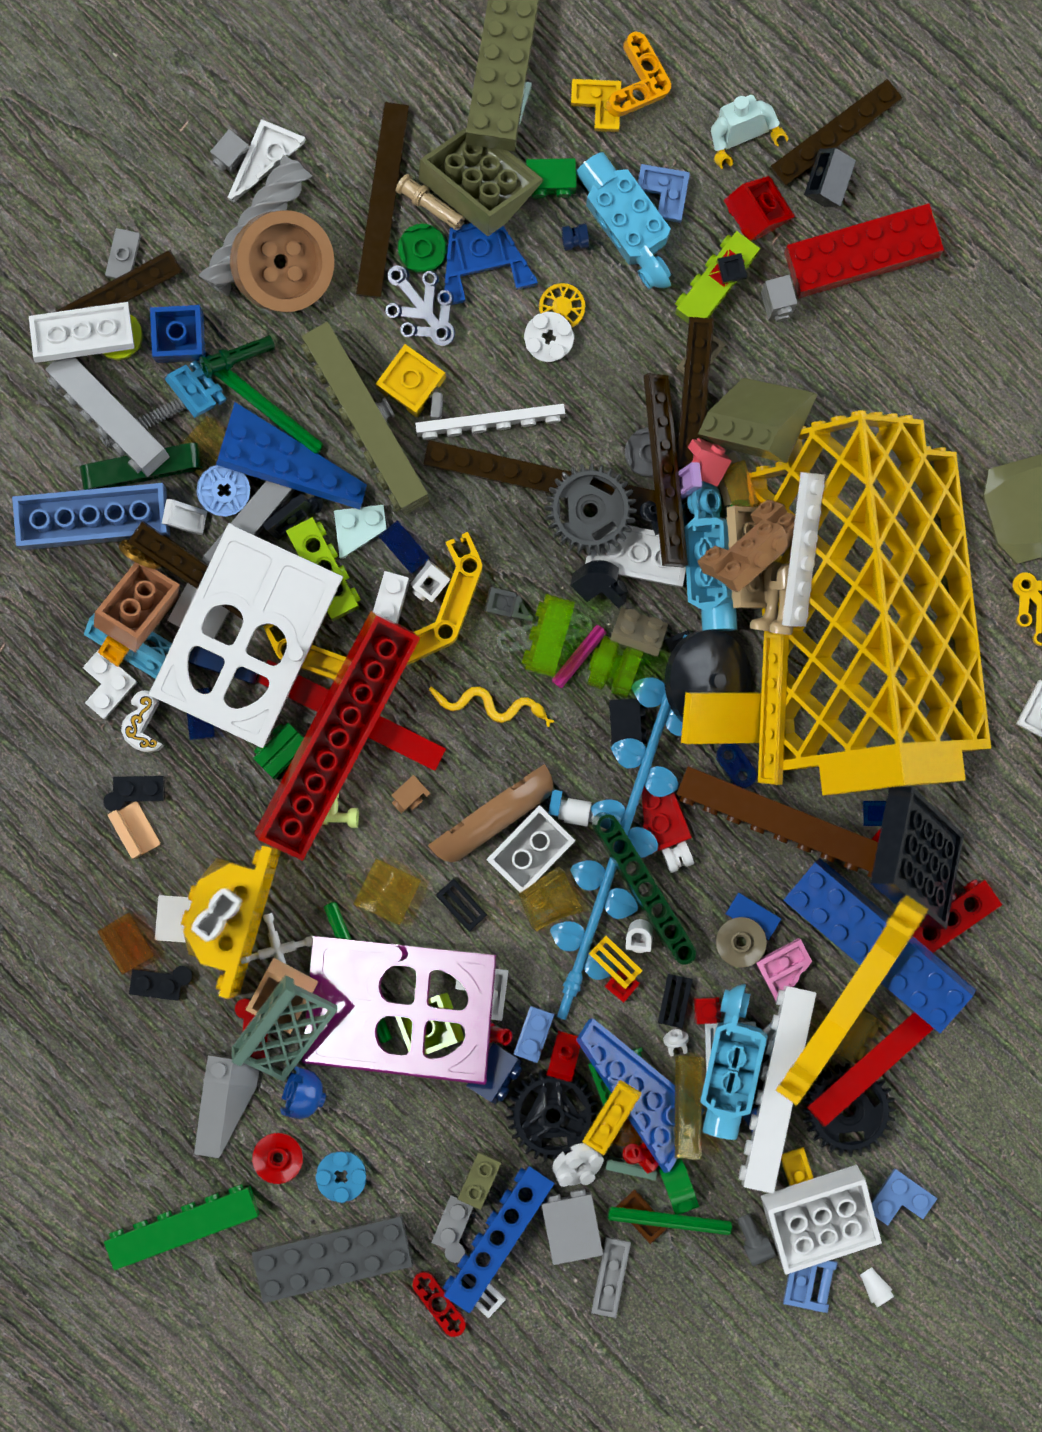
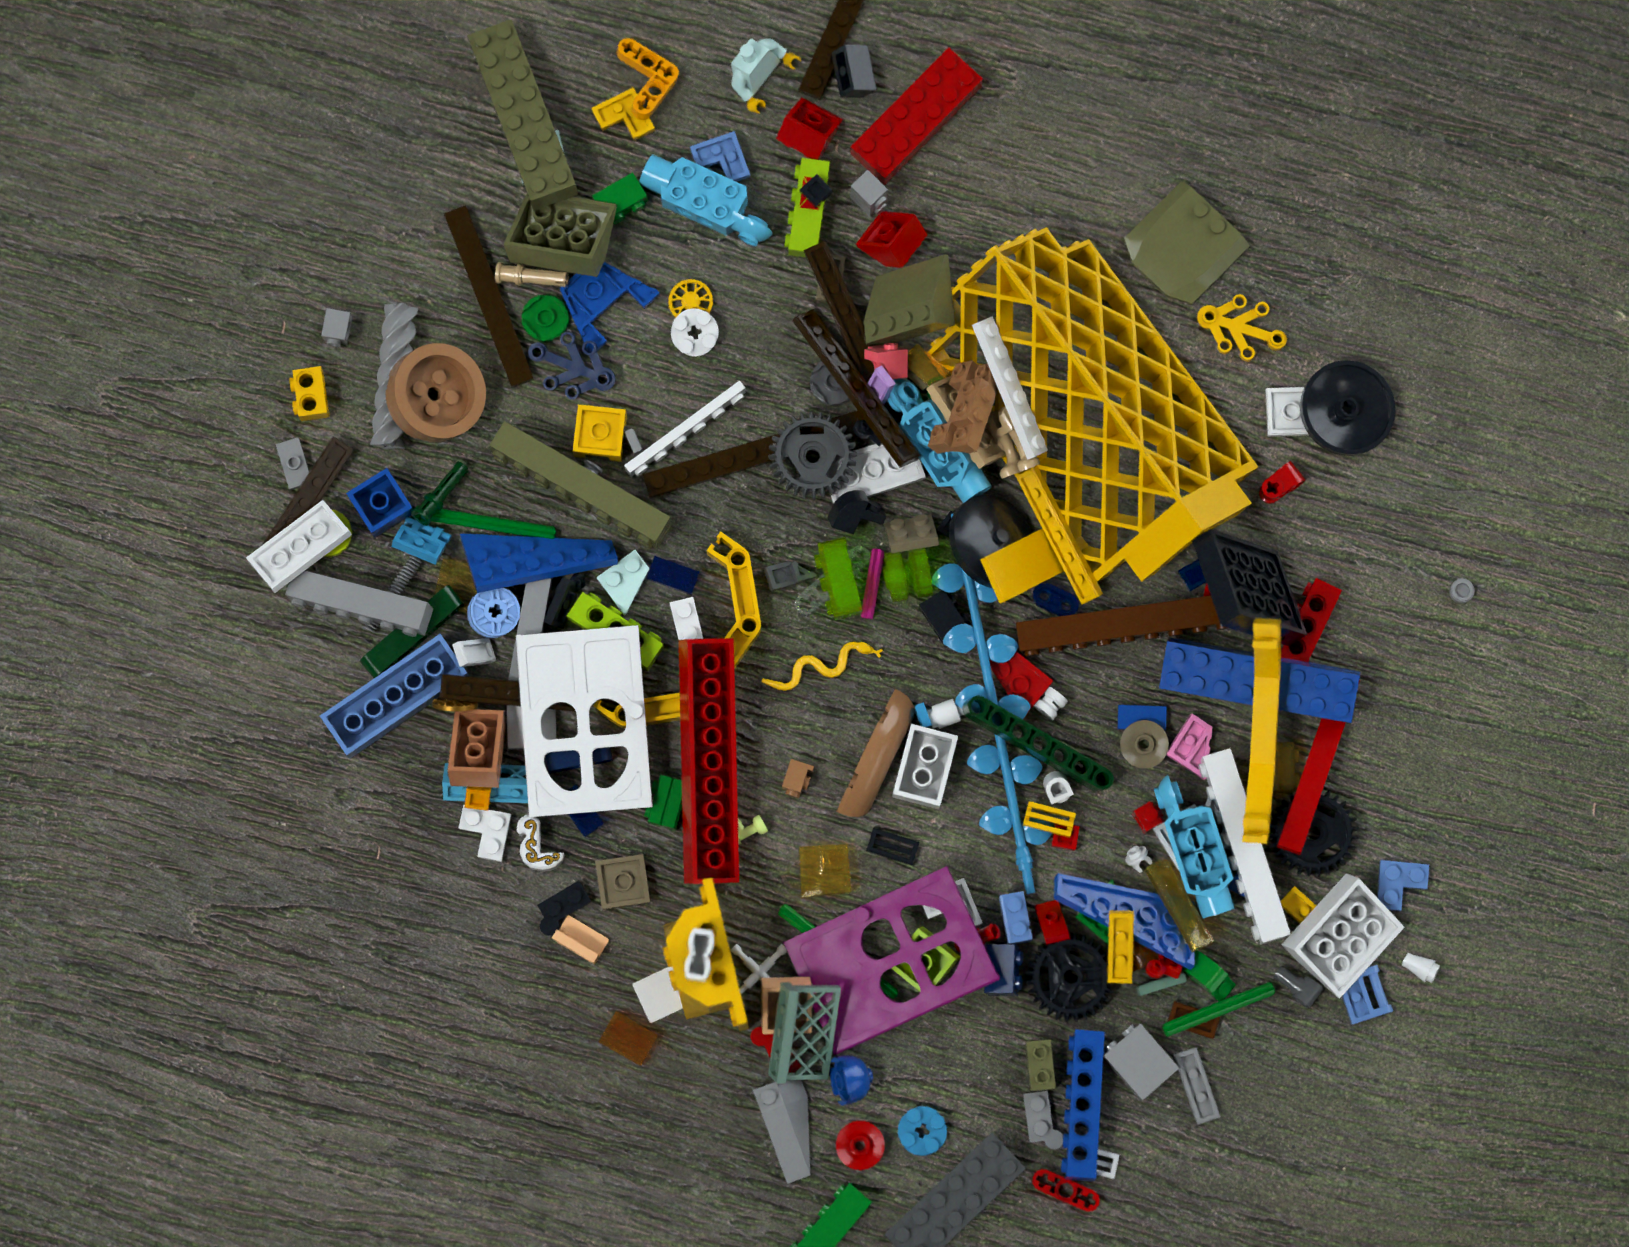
camera: 30 degrees left, 5 degrees down
(160, 984) = (676, 1057): black hinge -> none
(177, 200) = (315, 392): none -> yellow brick
(201, 799) = (622, 881): none -> dark tan plate
(263, 156) = (367, 312): white wing -> none
(384, 731) = (747, 739): red tile -> none
(431, 591) = (718, 587): white brick -> none
(549, 900) = (964, 799): clear yellow plate -> none
(575, 237) = (669, 237): dark blue wheel -> none
(577, 1166) = (1115, 1006): white plate -> none
(679, 979) = (1110, 805): black tile -> none
(777, 351) = (892, 238): none -> red slope
(1006, 774) = (1283, 481): none -> red piece

